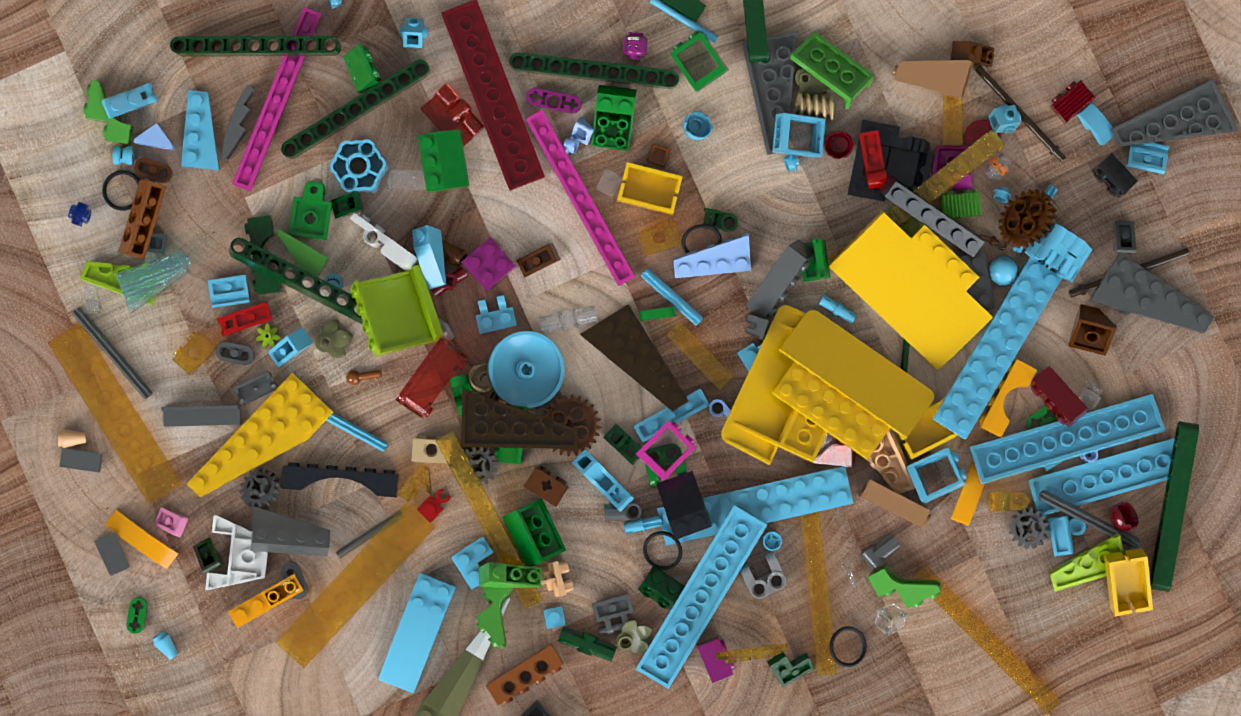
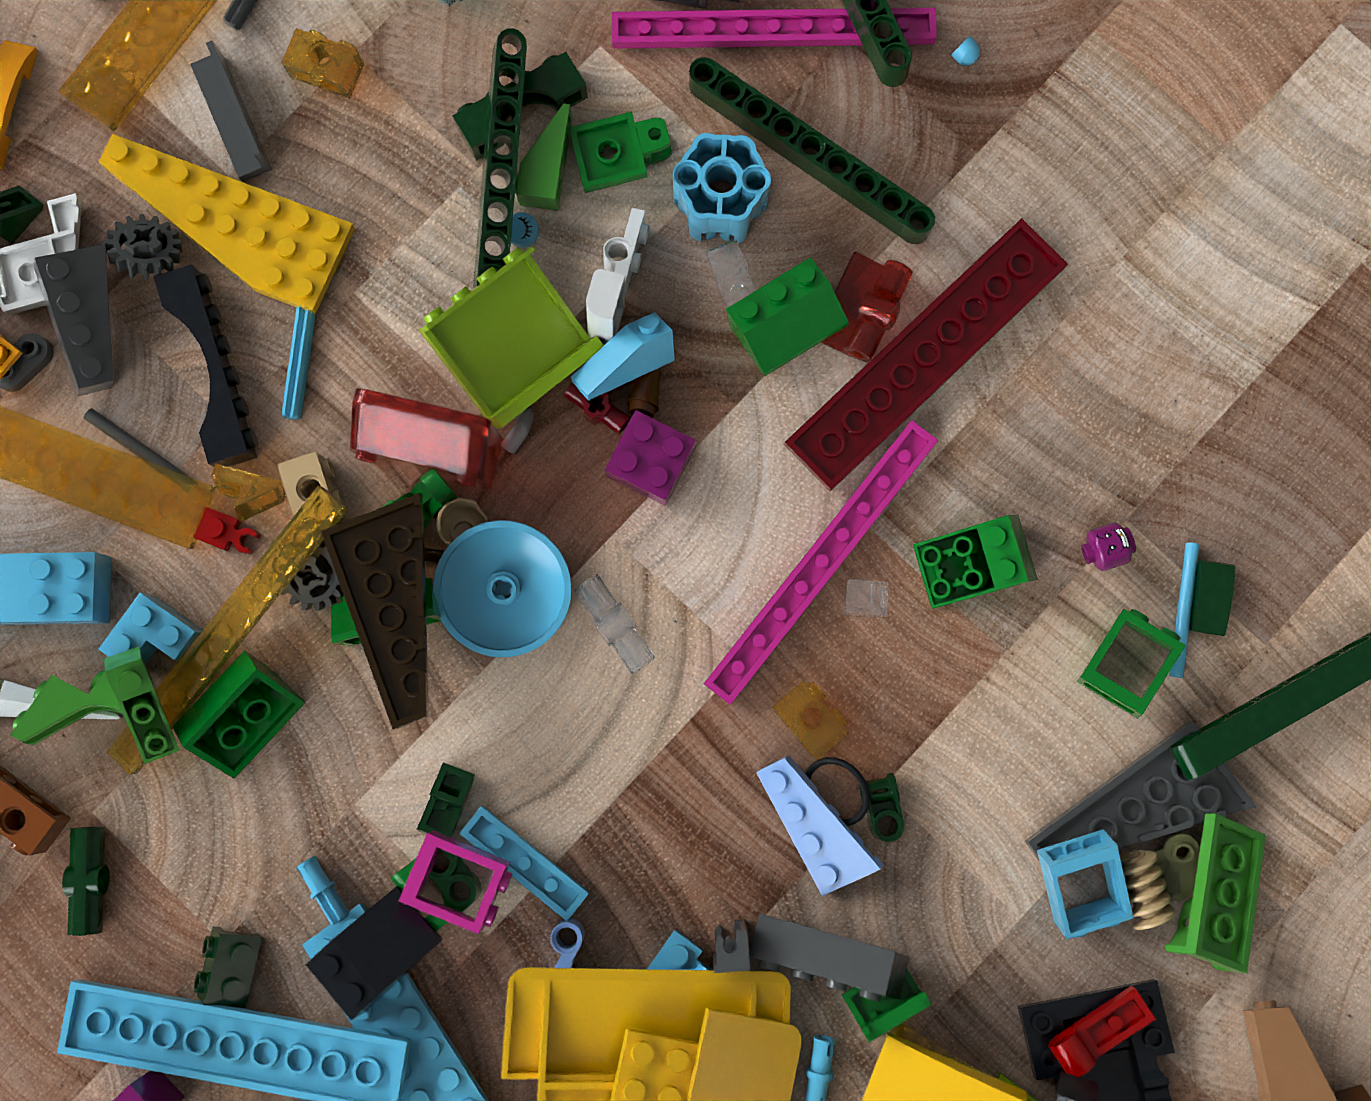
camera: 65 degrees right, 5 degrees down
(171, 522) = (41, 137): bright pink slope -> none
(228, 291) = (442, 76): medium azure plate -> none
(235, 353) = (347, 127): dark grey plate -> none
(245, 318) = (409, 119): red plate -> none
(255, 388) = (305, 177): dark grey hinge -> none
(271, 336) = (399, 169): lime plant -> none
(290, 347) = (392, 203): medium azure slope -> none
(336, 339) = (434, 269): olive plate -> none
(347, 205) = (657, 200): dark green slope -> none
(354, 377) = (385, 324): dark orange bar -> none
(360, 68) = (882, 127): green slope -> none
(413, 32) = (971, 187): medium azure brick -> none
(497, 319) = (566, 507): medium azure plate -> none
(538, 259) = (692, 536): reddish brown slope -> none
(552, 495) = (317, 719): reddish brown brick -> none
(554, 579) = (165, 795): light nougat hips -> none
(554, 617) = (113, 806): medium azure plate -> none
(566, 109) = (944, 432): magenta beam -> none
(567, 407) = (466, 681): reddish brown gear -> none
(571, 145) = (901, 511): light blue plate -> none
(582, 131) = (930, 520): light blue slope -> none
(587, 64) = (1035, 515): dark green beam -> none
(602, 480) = (372, 788): medium azure arch -> none
(611, 513) = (329, 843): dark grey piece -> none
(613, 608) = (161, 898): dark grey plate -> none
(630, 348) = (608, 746): dark brown wing -> none
(636, 636) = (125, 954): olive plate -> none
(649, 188) = (886, 668): yellow piece -> none
(657, 313) = (684, 768): green beam -> none
(658, 155) = (945, 660): dark orange tile -> none
(666, 534) = (264, 934): black tyre -> none
(671, 296) = (722, 780): medium azure axle -> none
(697, 126) = (1023, 704): medium azure hair -> none
(699, 355) = (643, 868): clear yellow plate -> none
(791, 162) = (1030, 888): medium azure plate -> none
(838, 144) = (1098, 958): dark red hair -> none

